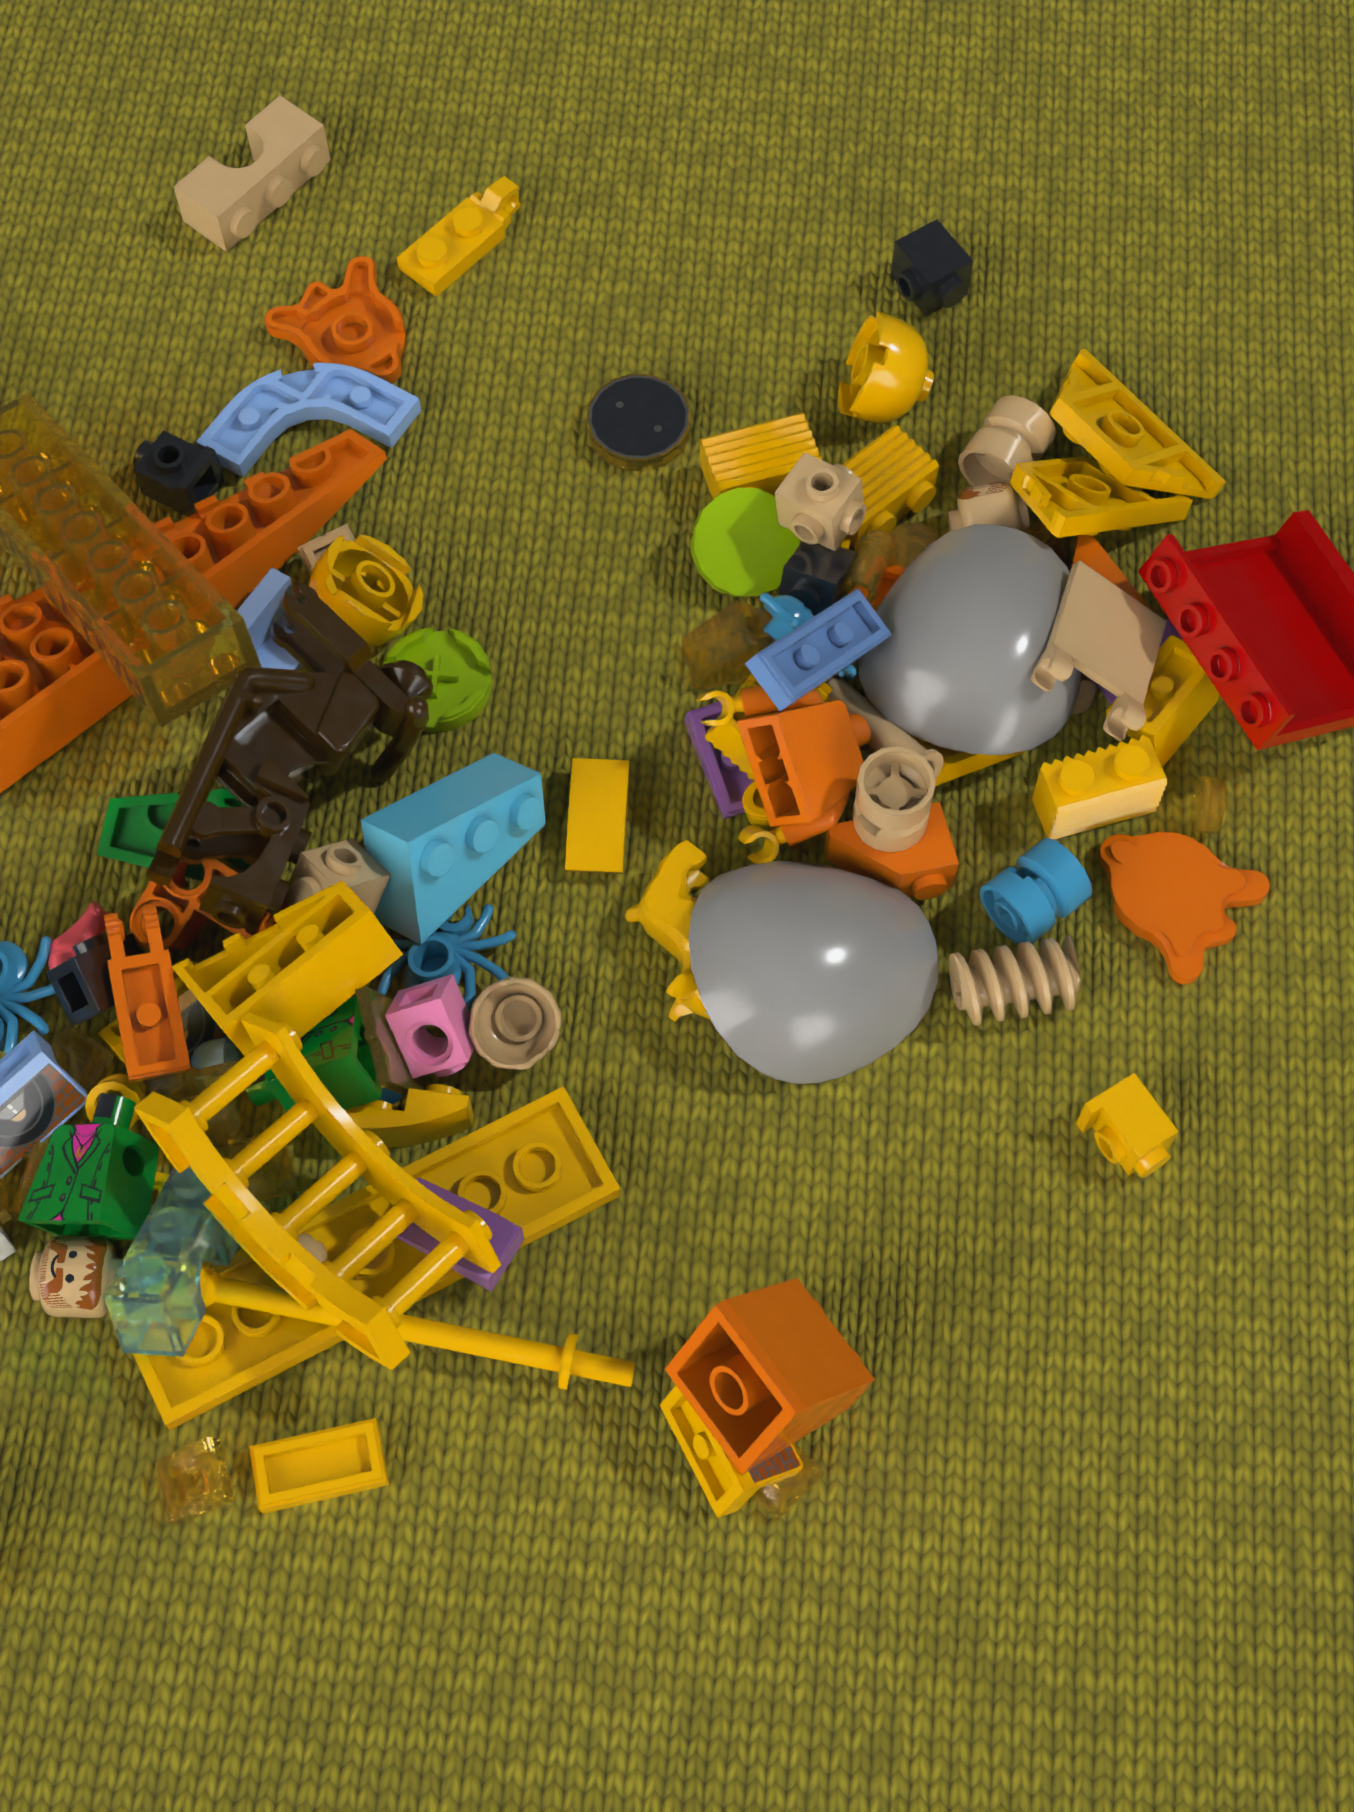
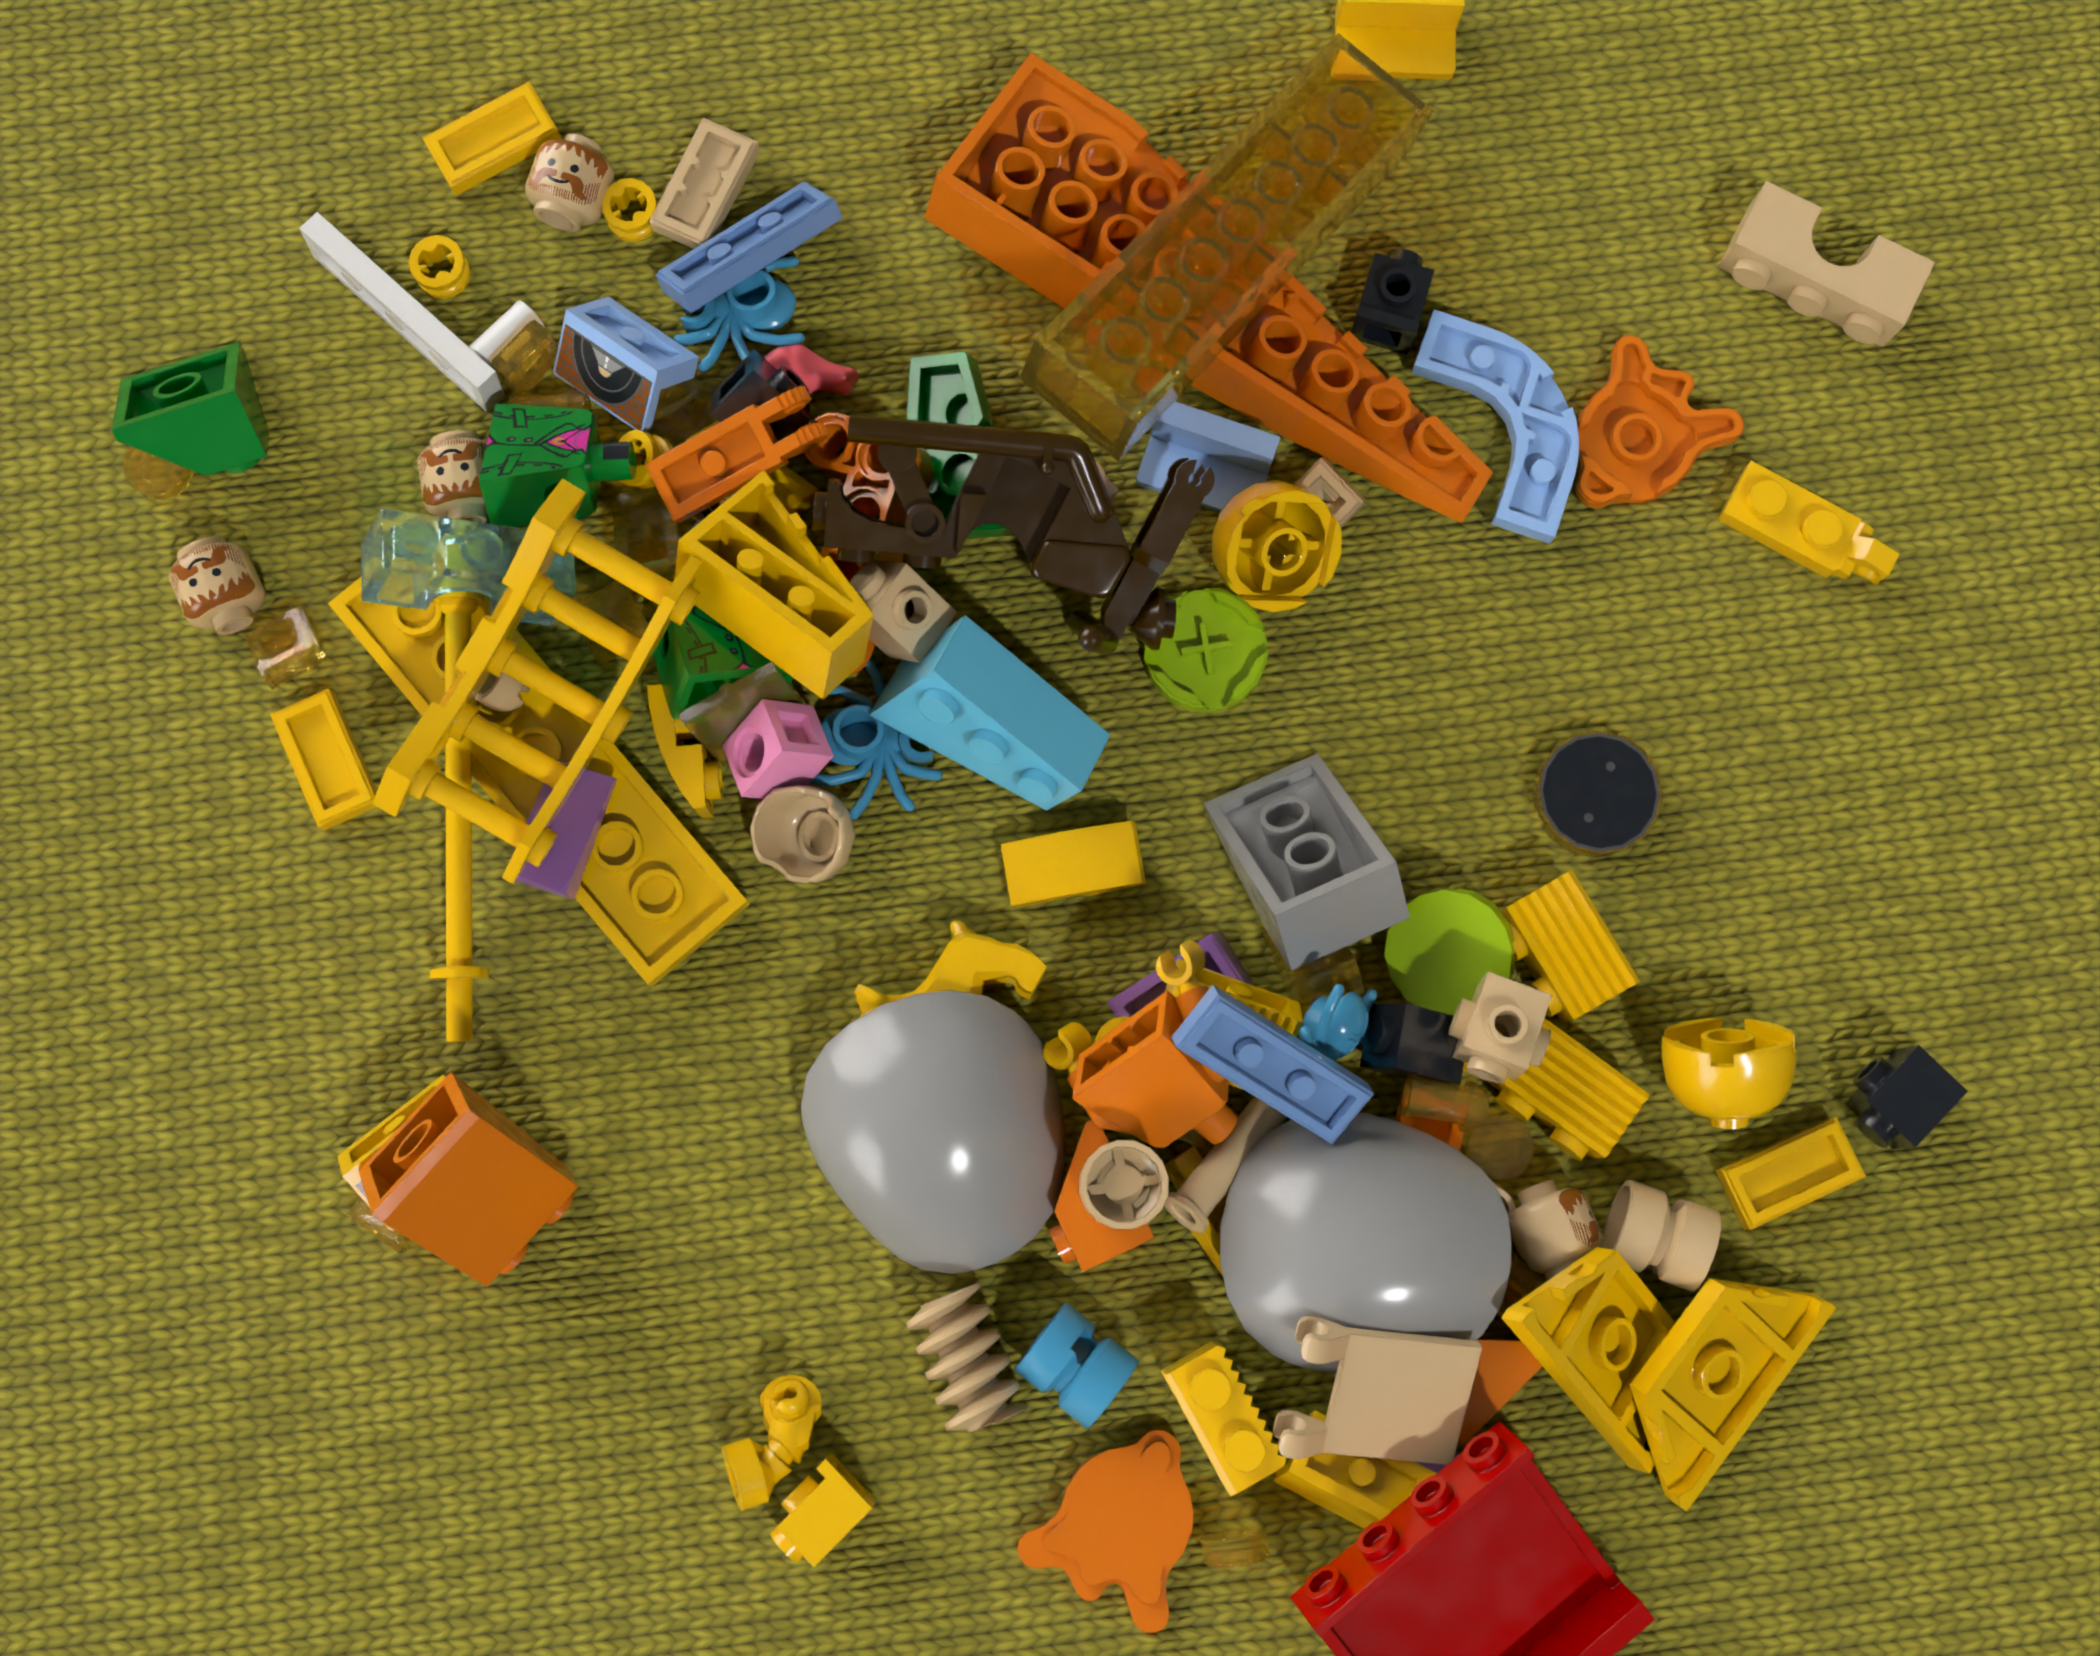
camera: 75 degrees right, 15 degrees up
(110, 1538) = (216, 585): none -> tan head
(643, 624) = (1308, 861): none -> light grey slope
(973, 359) = (1790, 1173): none -> yellow tile
(1041, 1144) = (789, 1414): none -> yellow arm

